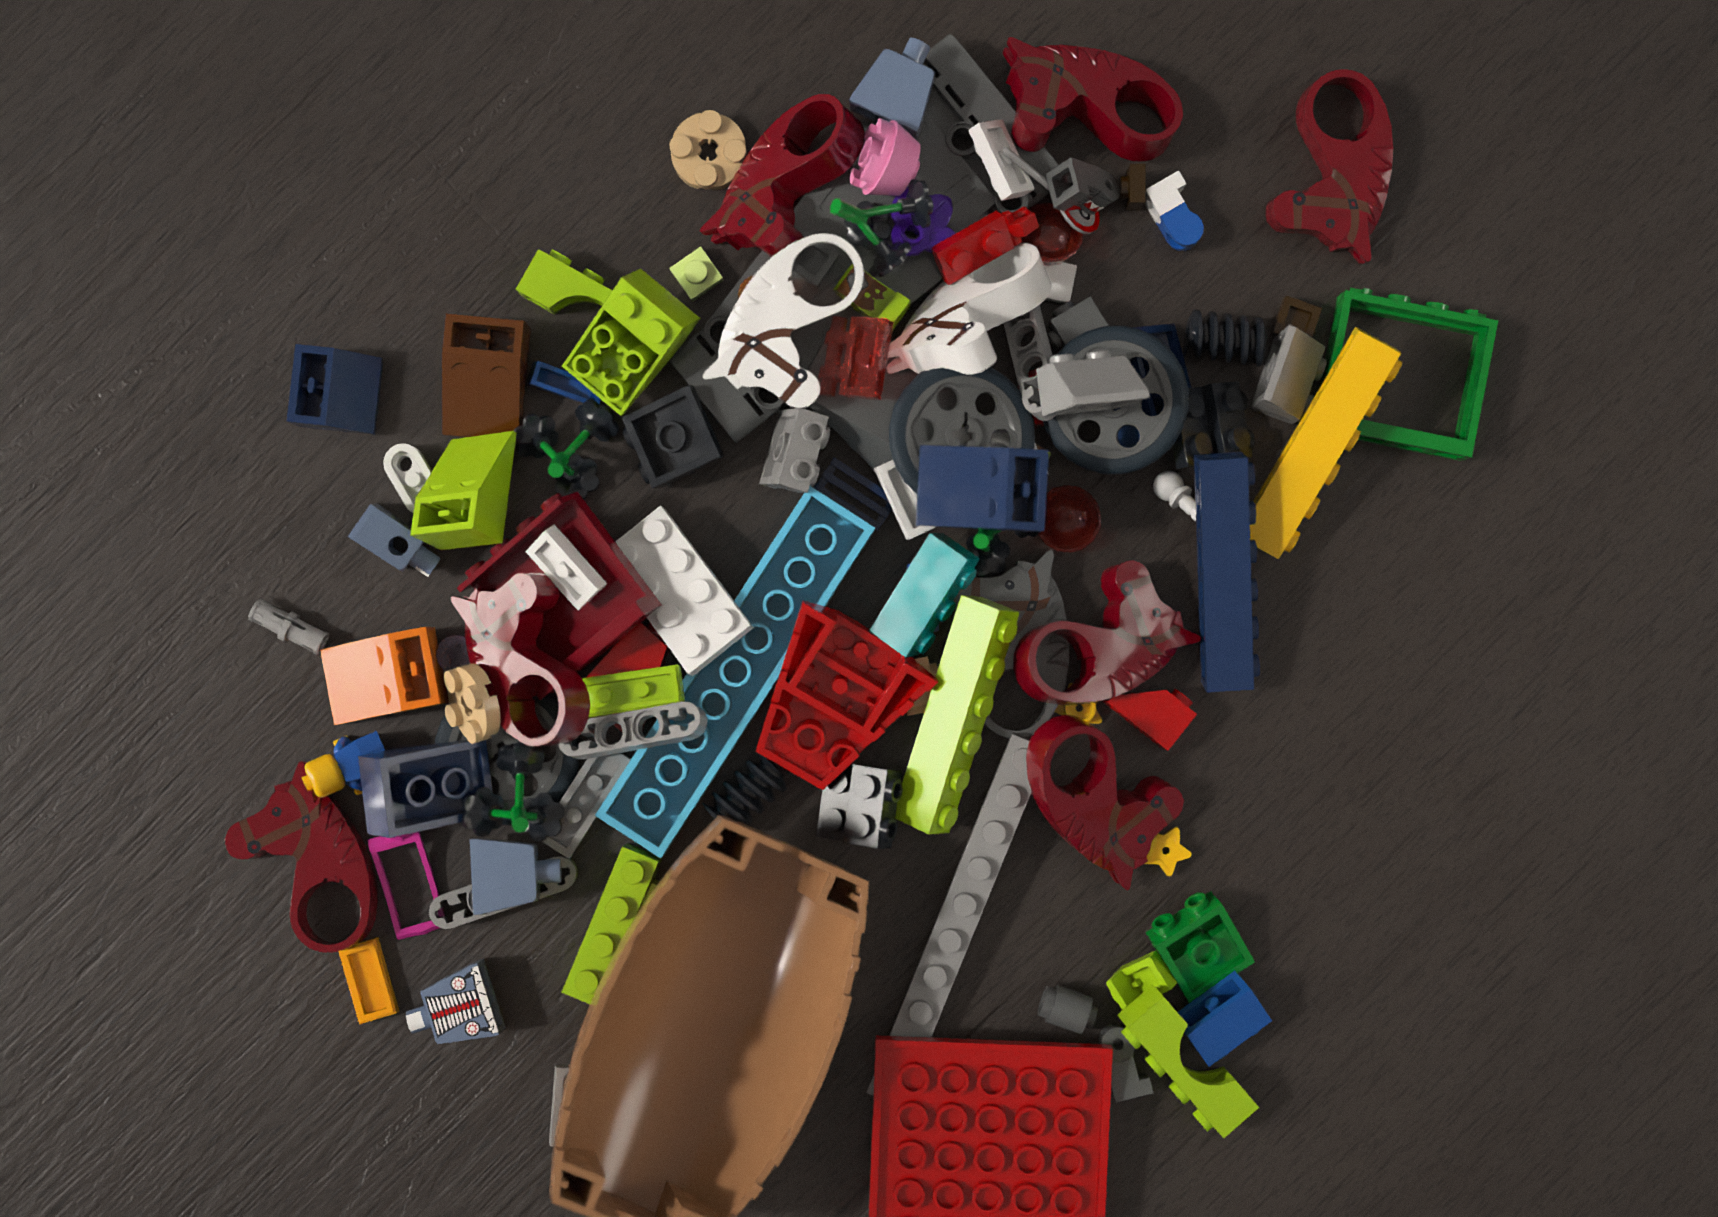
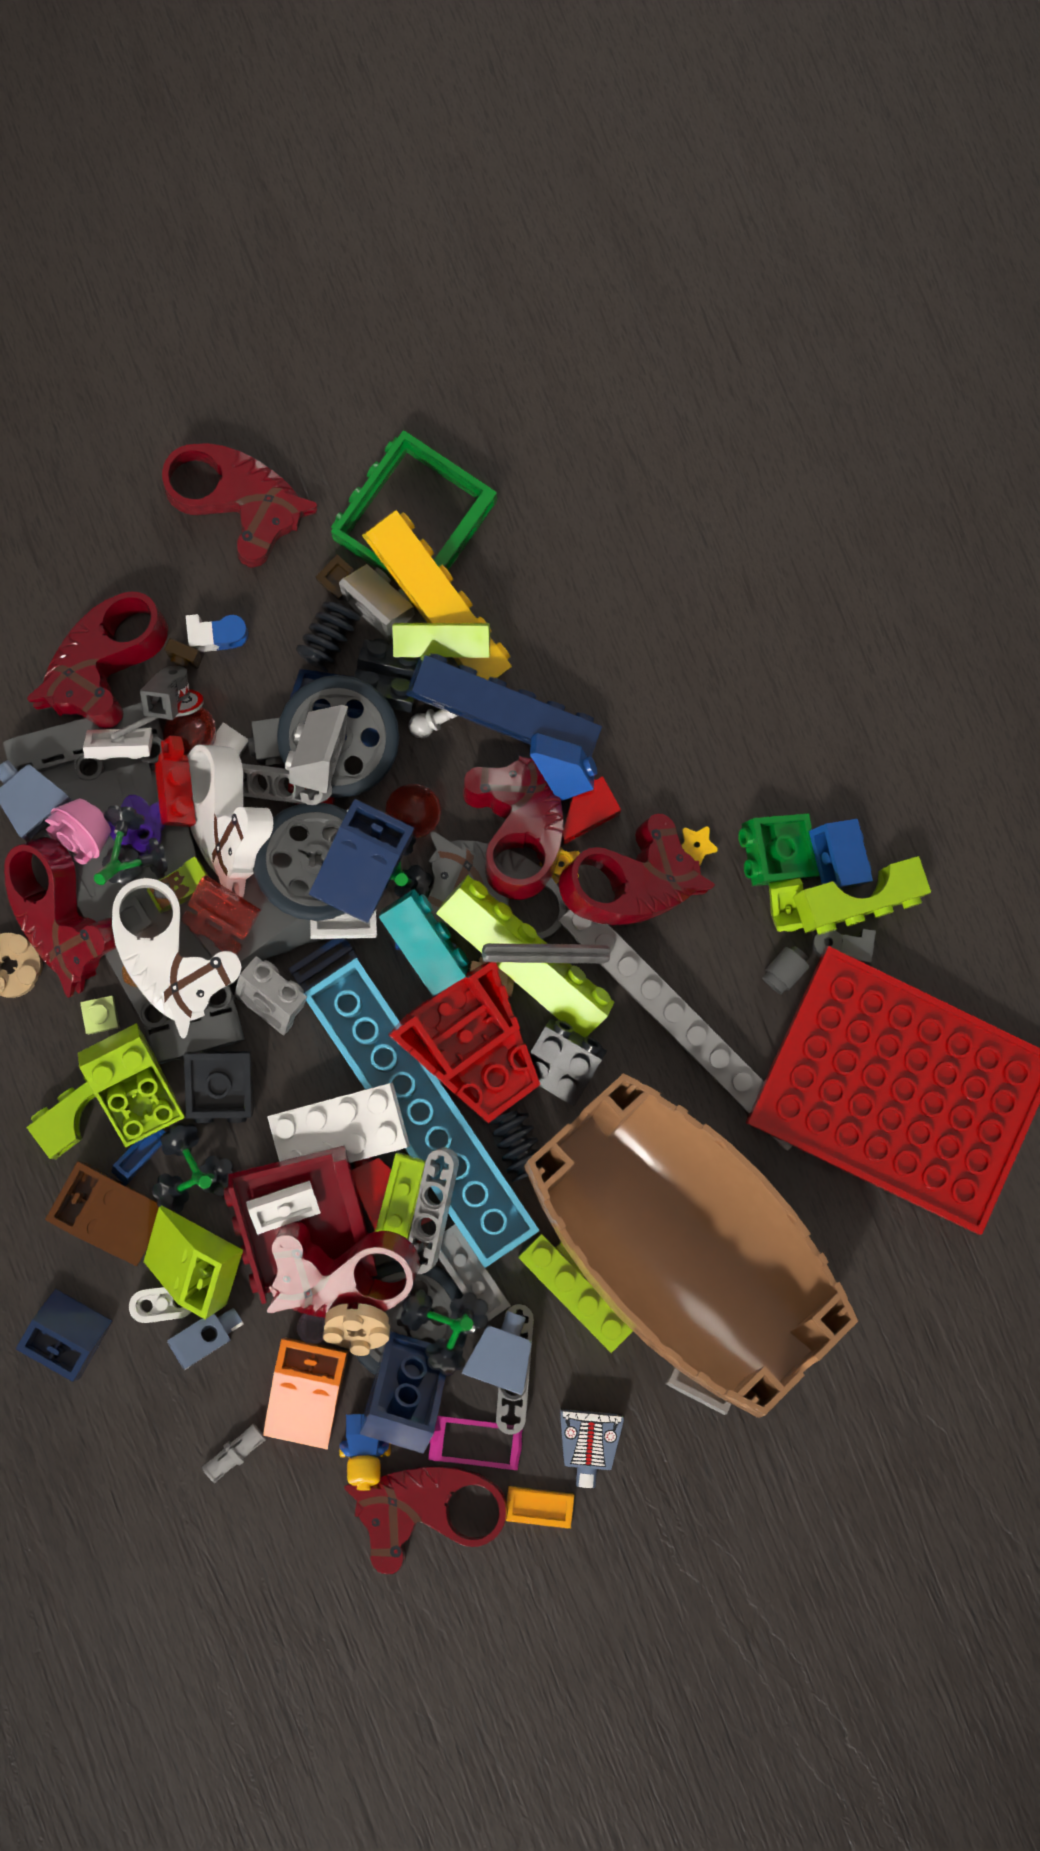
camera: 75 degrees left, 5 degrees down
(967, 737) = (545, 953): none -> flat silver axle
(1189, 665) = (563, 766): none -> blue slope
(1274, 468) = (444, 639): none -> tile

